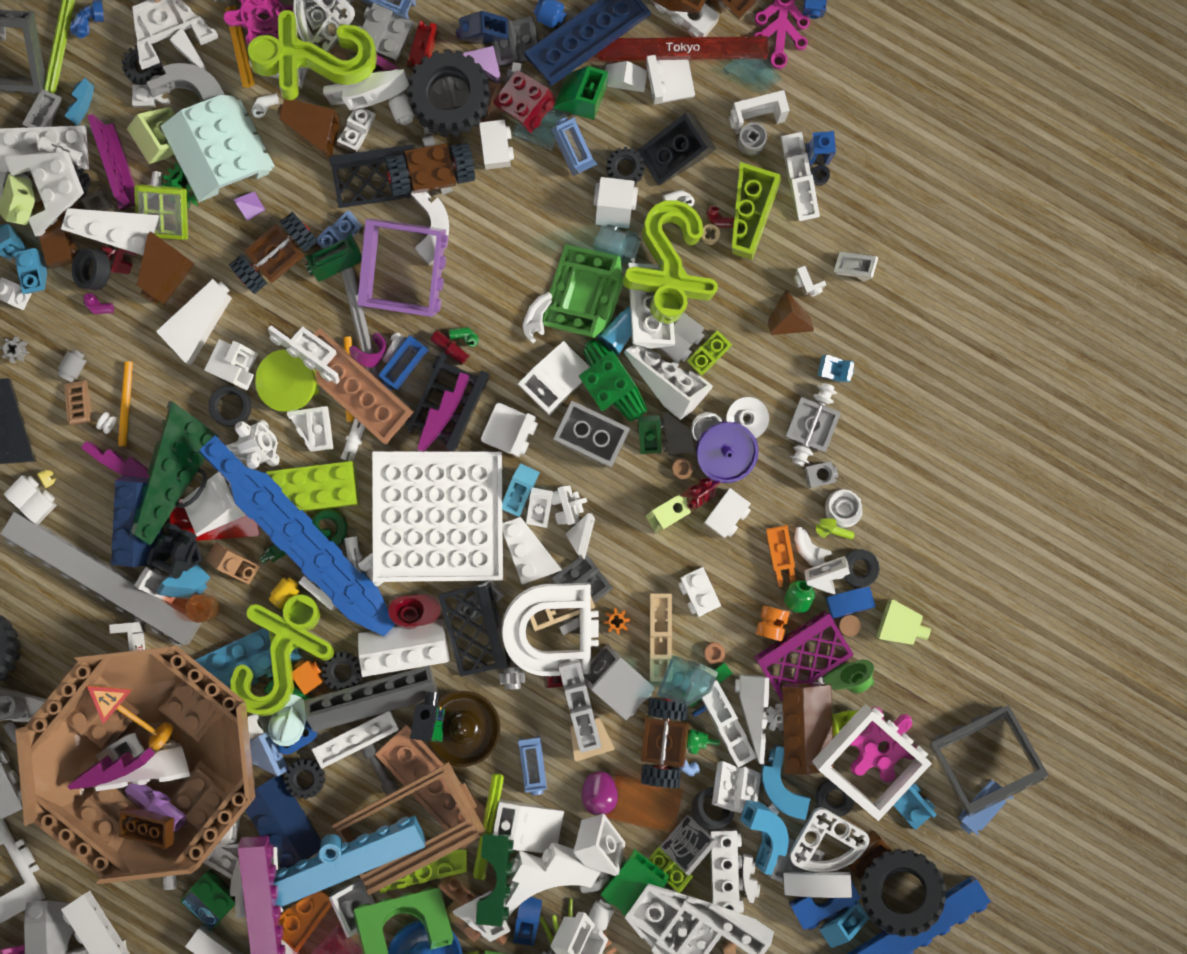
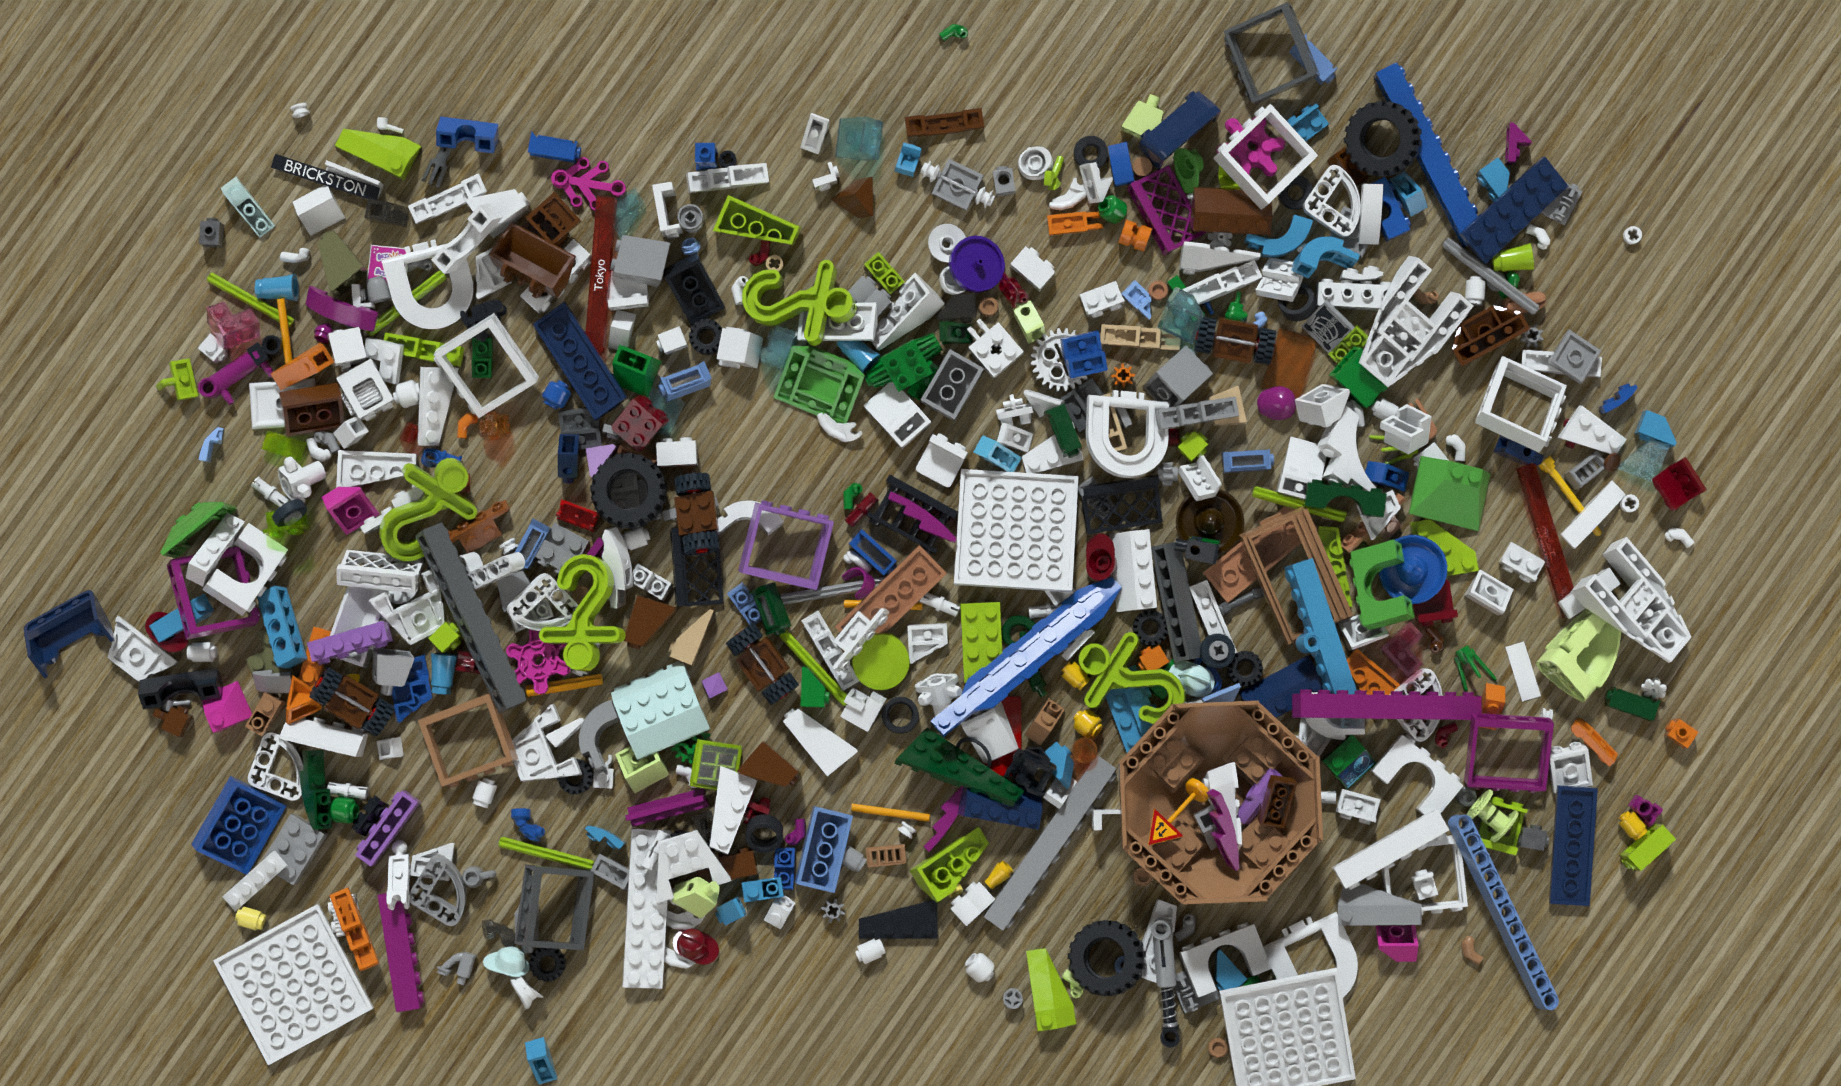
camera: 80 degrees left, 0 degrees up
(58, 295) = (784, 866): none -> blue slope
(64, 526) = (999, 874): none -> yellow cone
(67, 467) = (945, 869): none -> lime wedge
(77, 334) = (823, 849): none -> medium blue slope
(160, 914) = (1358, 806): none -> white bracket
(232, 610) = (1087, 723): none -> yellow head
(248, 308) = (813, 691): none -> green slope
(262, 104) = (619, 667): white arm -> none
(277, 309) = (814, 667): none -> lime axle
(289, 173) = (689, 642): none -> tan slope
(306, 316) = (828, 648): none -> white slope
(322, 739) = (1211, 653): none -> black wheel
(507, 714) = (1200, 479): none -> white bracket
(545, 704) = (1192, 445): none -> lime brick
(549, 560) = (1064, 431): none -> dark green window
(585, 399) = (918, 389): none -> green plate
(617, 130) = (671, 341): none -> white brick
(620, 535) = (1045, 365): none -> white gear
(635, 576) = (1083, 354): none -> blue slope
(637, 465) = (994, 337): none -> white hinge
(702, 87) = (640, 260): none -> light grey slope
(704, 632) = (1138, 298): none -> light blue slope
(722, 142) = (690, 246): none -> light blue plate
(854, 314) = (859, 138): none -> clear light blue slope
(879, 405) = (944, 123): none -> reddish brown slope
(896, 662) = (1178, 128): none -> dark blue windscreen
(982, 408) = (954, 30): none -> green arm

